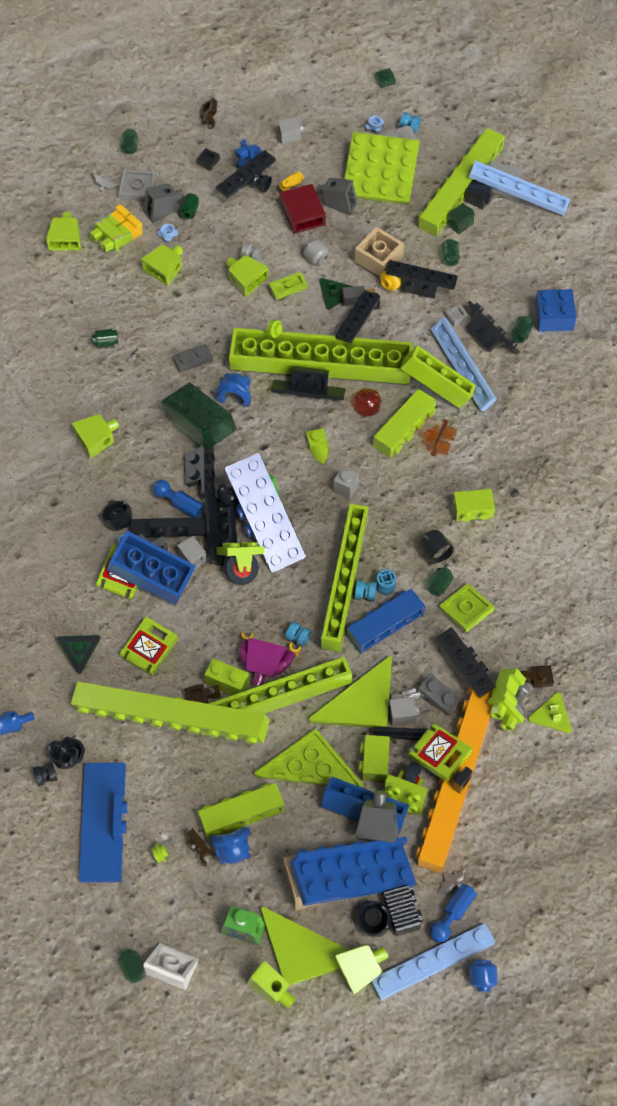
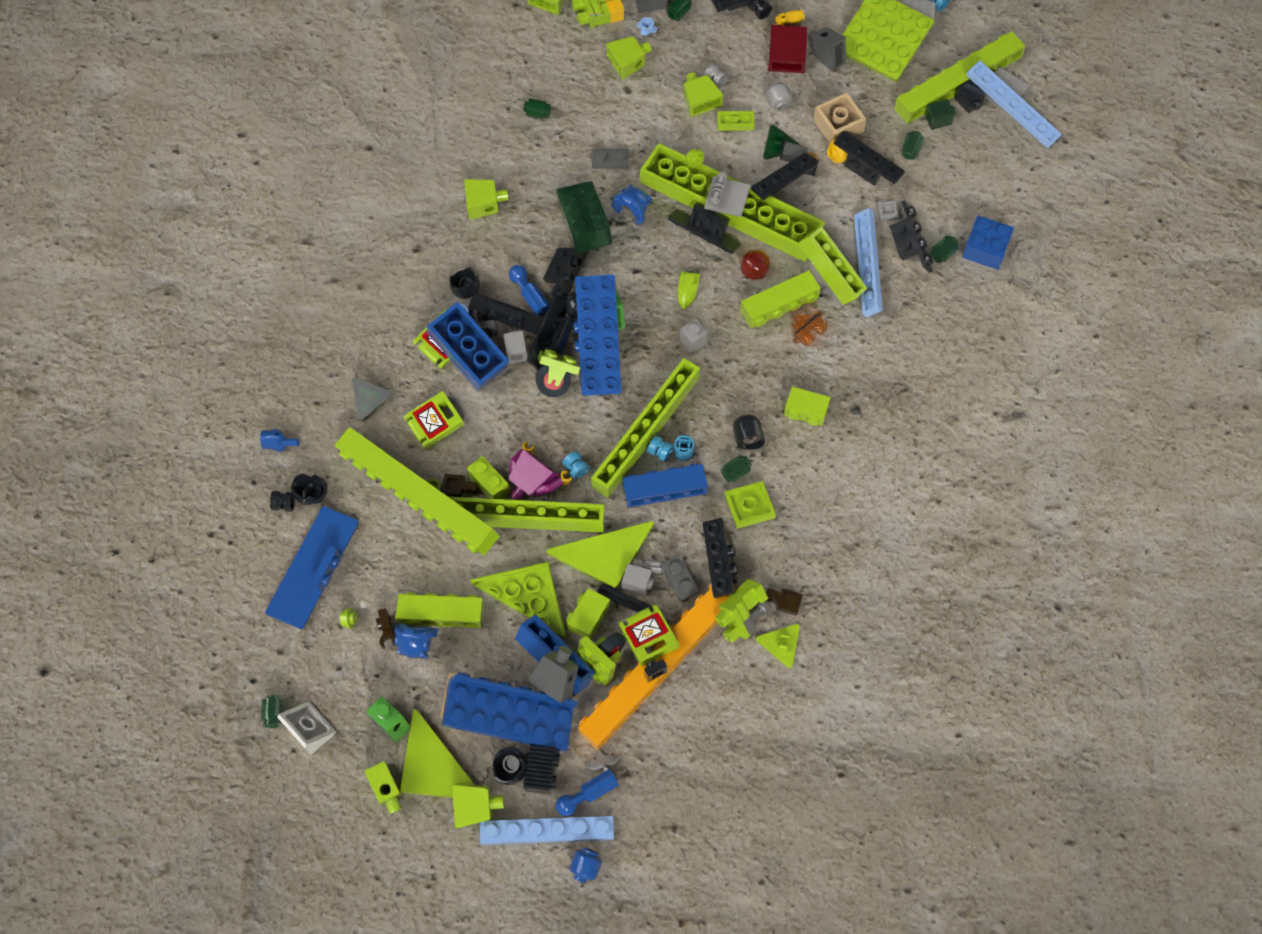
camera: 25 degrees right, 5 degrees up
(318, 350) = (727, 195): none -> light grey hinge

